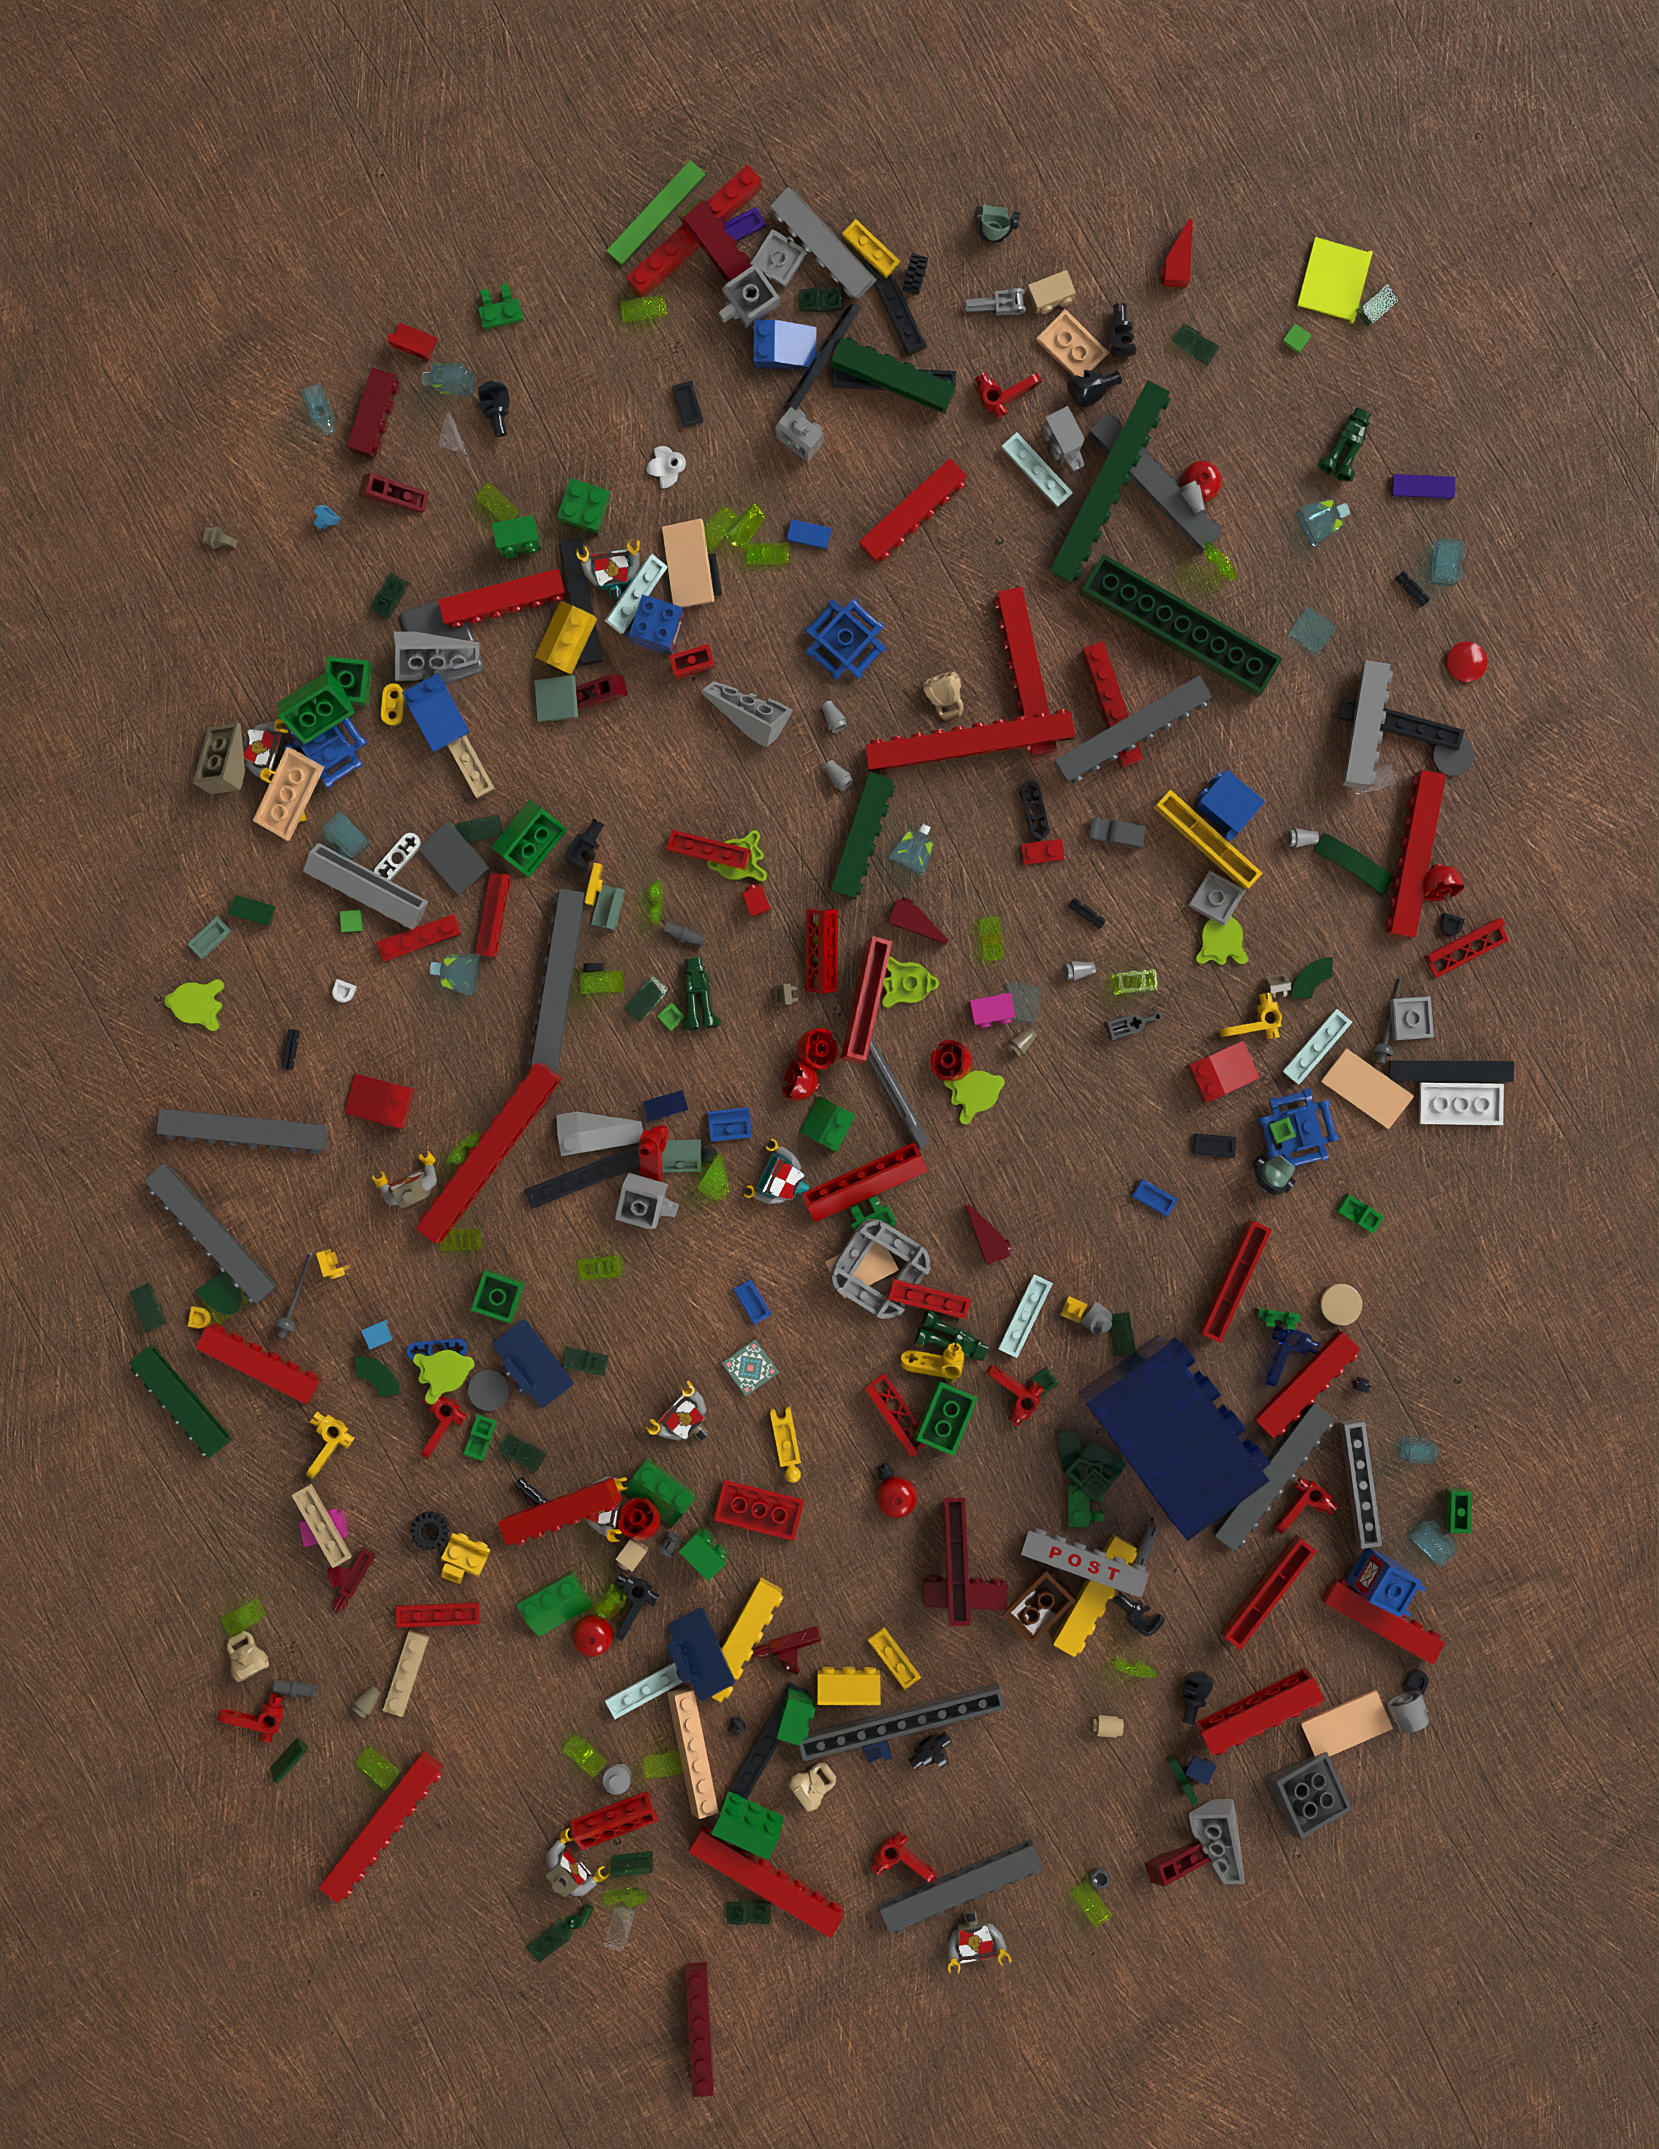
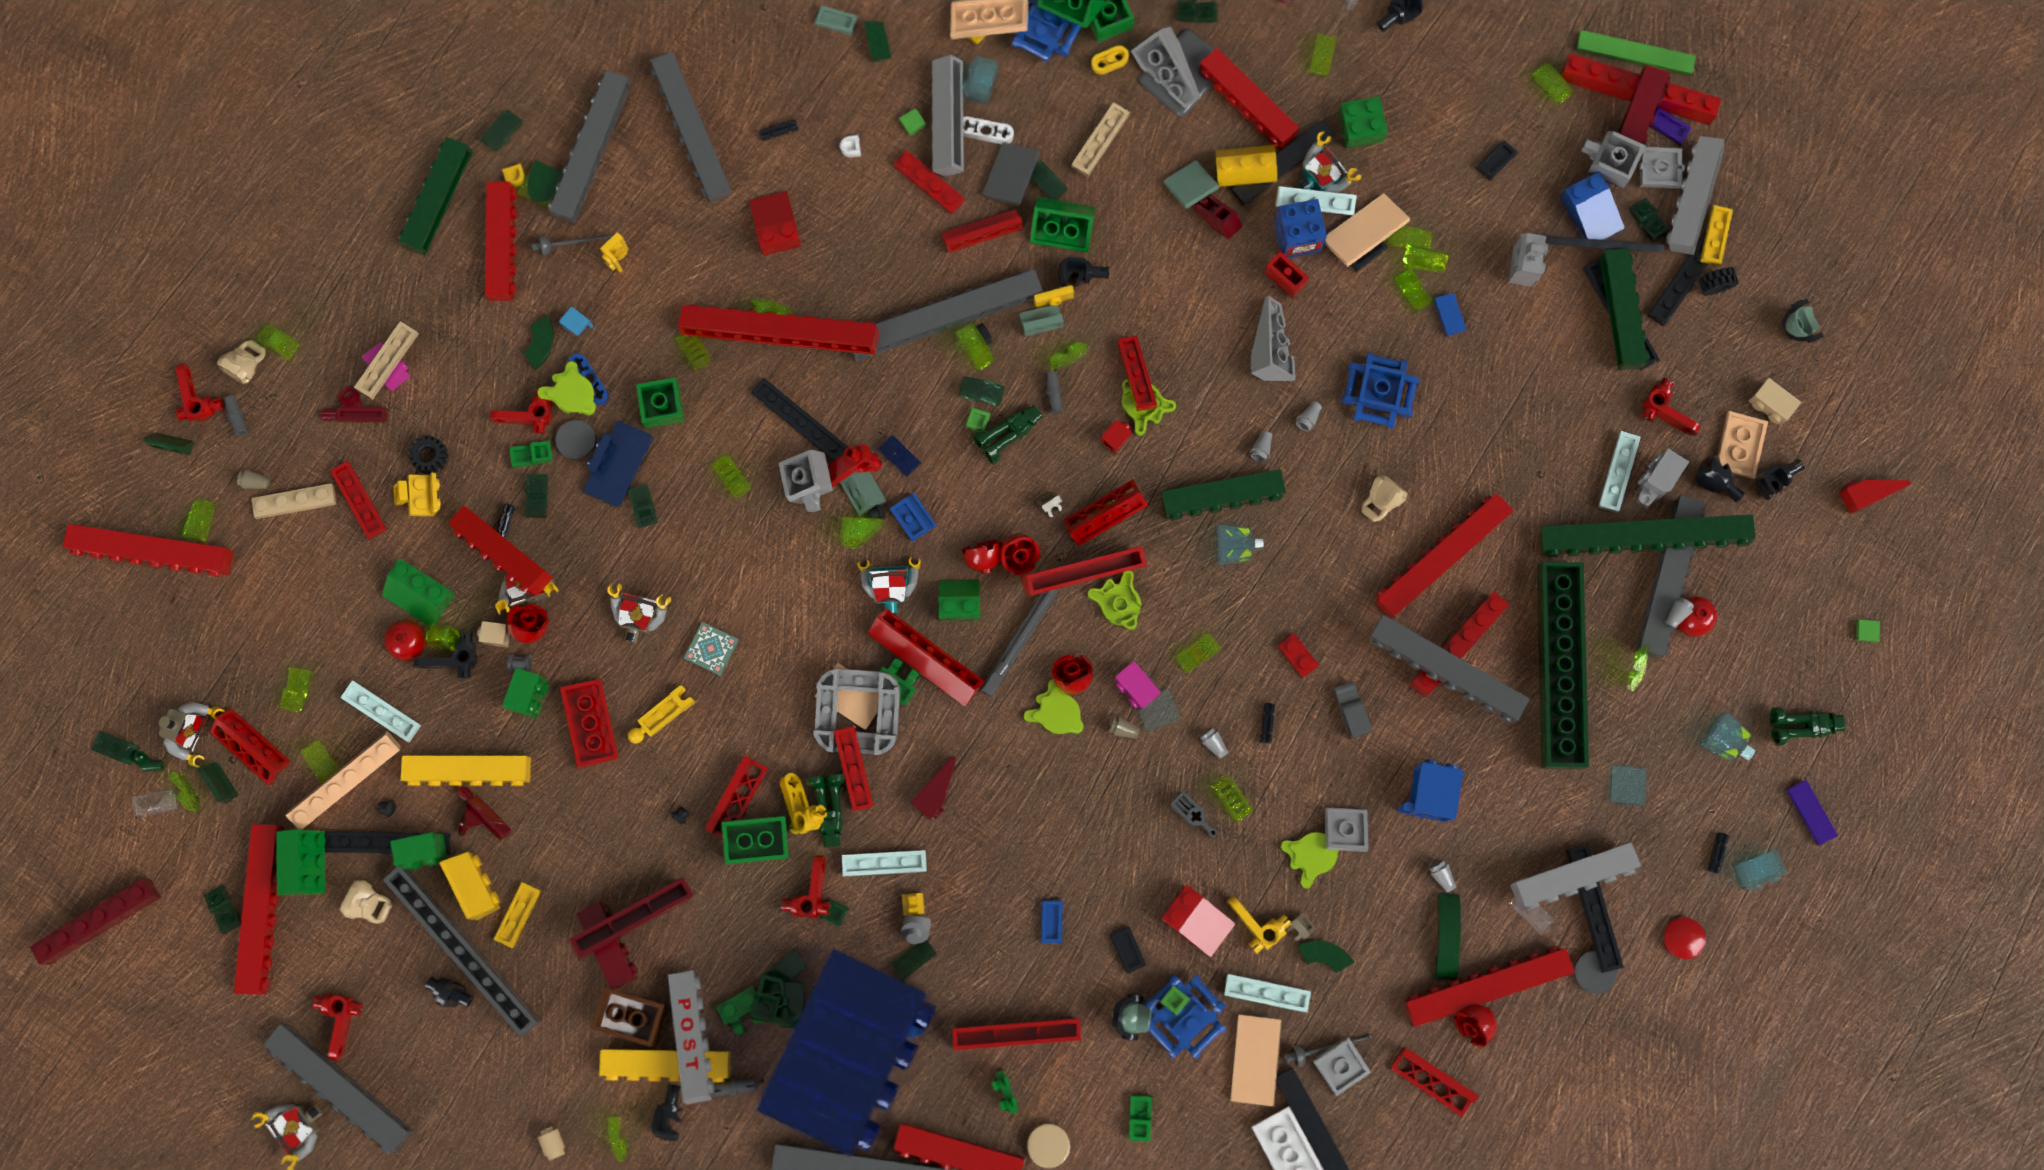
camera: 60 degrees right, 10 degrees down
(196, 1003) = (776, 37): lime tile -> none
(324, 1424) = (463, 335): yellow piece -> none
(410, 1188) = (714, 283): torso -> none
(436, 712) = (1123, 94): blue slope -> none
(458, 972) = (917, 227): clear light blue torso -> none
(517, 536) = (1305, 81): green brick -> none
(589, 1132) = (842, 406): light grey wedge -> none
(617, 1778) = (288, 728): light grey piece -> none
(662, 1489) = (564, 629): green slope -> none
(663, 466) = (1433, 168): white plate -> none
(699, 1655) = (432, 737): dark blue bracket -> none
(752, 1301) = (770, 620): blue tile -> none
(877, 1750) = (426, 944): dark blue panel -> none
(896, 1497) = (662, 838): red cylinder -> none
(912, 511) = (1521, 387): red brick -> none
(912, 919) = (1175, 573): dark red slope -> none
(970, 741) = (1357, 540): red brick -> none
(1003, 303) = (1739, 367): light grey connector -> none
(1026, 796) = (1315, 635): black beam -> none
(1195, 345) = (1808, 547): clear green slope -> none
(1207, 840) = (1392, 792): yellow brick -> none
(1302, 1346) = (994, 1132): clear blue piece -> none
(1334, 279) = (1938, 635): neon yellow piece -> none
(1377, 305) = (1940, 684): clear green slope -> none
(1451, 924) = (1445, 1056): black tile -> none

